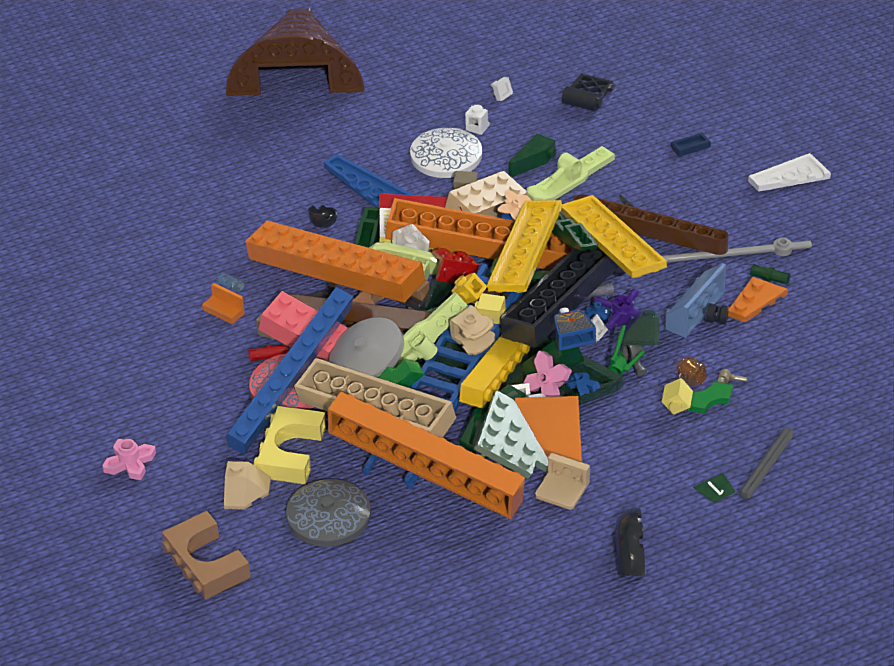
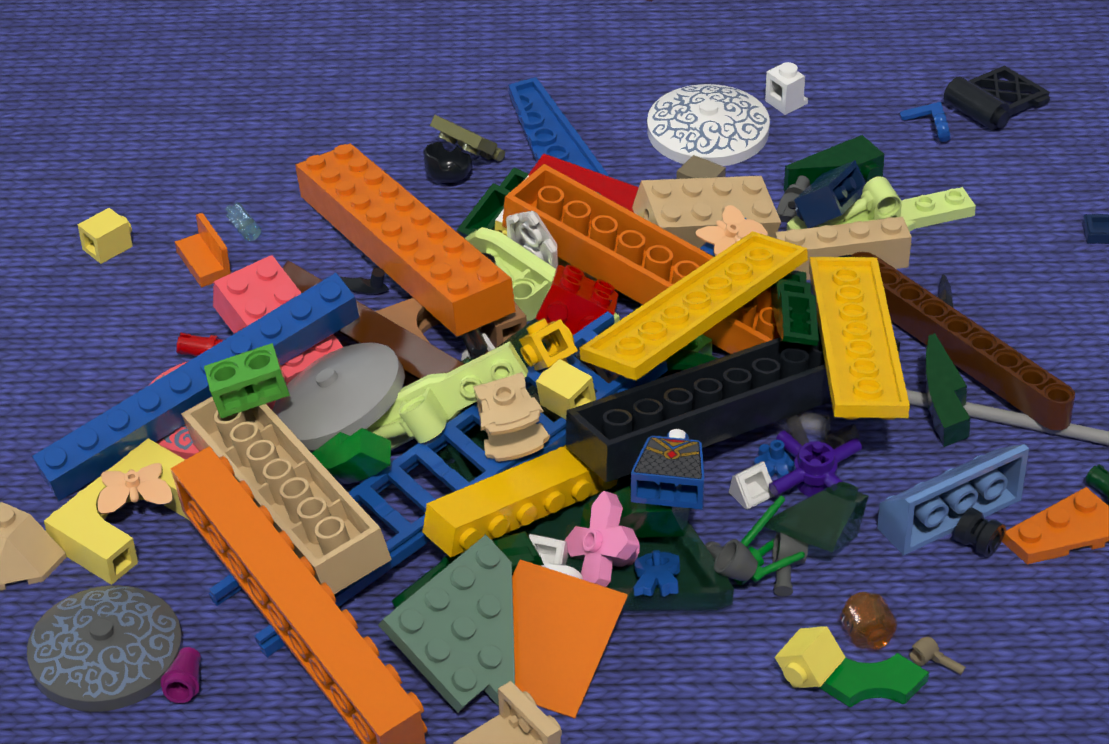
camera: 25 degrees right, 0 degrees up
(161, 313) = (105, 235): none -> light yellow brick
(292, 428) = (144, 482): none -> light nougat piece
(325, 198) = (467, 139): none -> olive plate
(325, 356) = (246, 380): none -> bright green brick
(381, 511) = (182, 677): none -> magenta cone
(502, 88) = (858, 53): white tile -> none
(522, 176) = (787, 201): none -> dark grey piece
(543, 170) = (830, 195): none -> dark blue brick
(570, 116) = (938, 115): none -> blue piece
(581, 184) = (883, 237): none -> tan arch
(616, 363) = (733, 559): none -> dark grey bar
(625, 289) = (834, 440): none -> clear smoke piece
(665, 249) = (945, 394): none -> dark green slope

